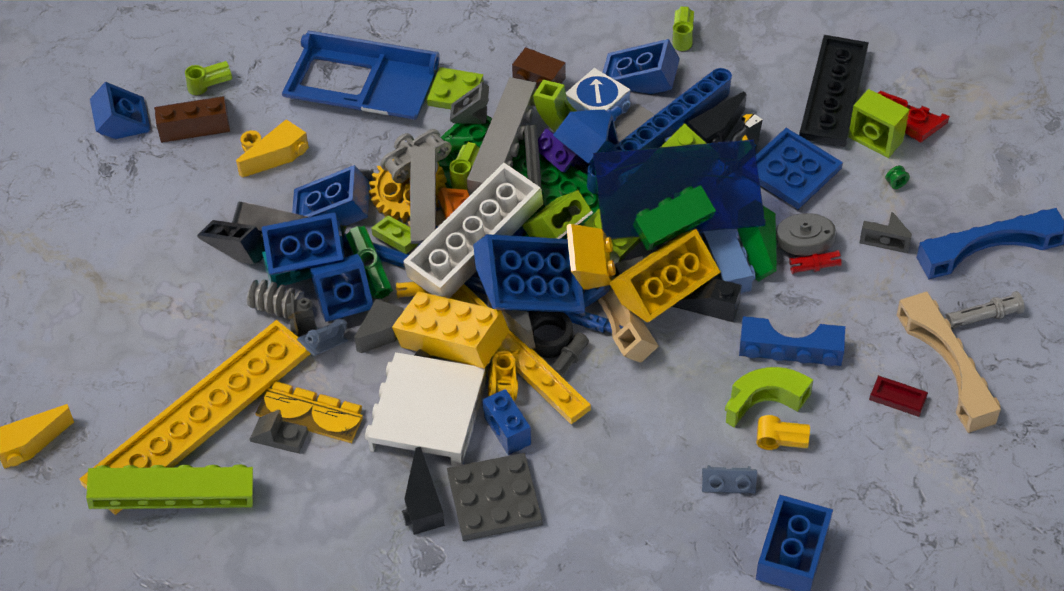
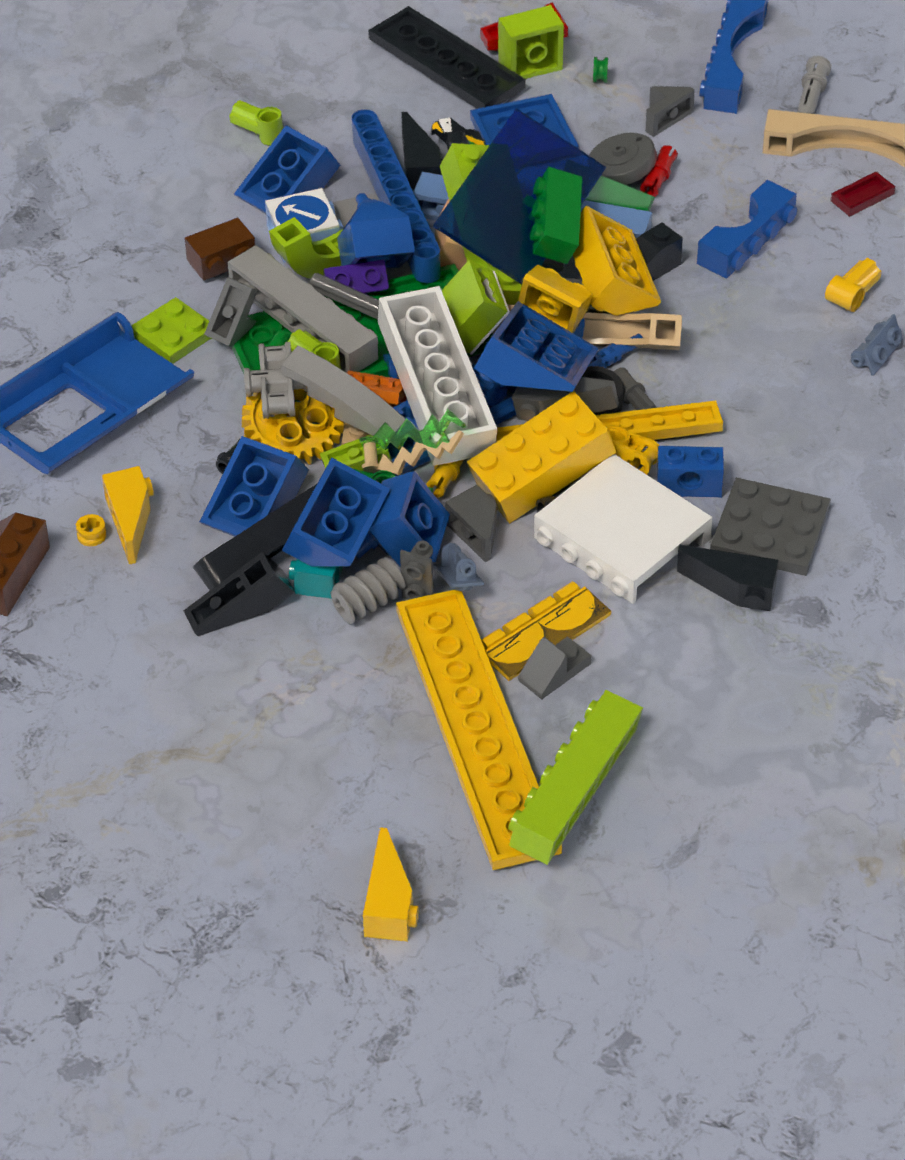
camera: 60 degrees left, 5 degrees down
(402, 241) = (422, 438): none -> piece
(767, 385) = (792, 262): lime arch -> none

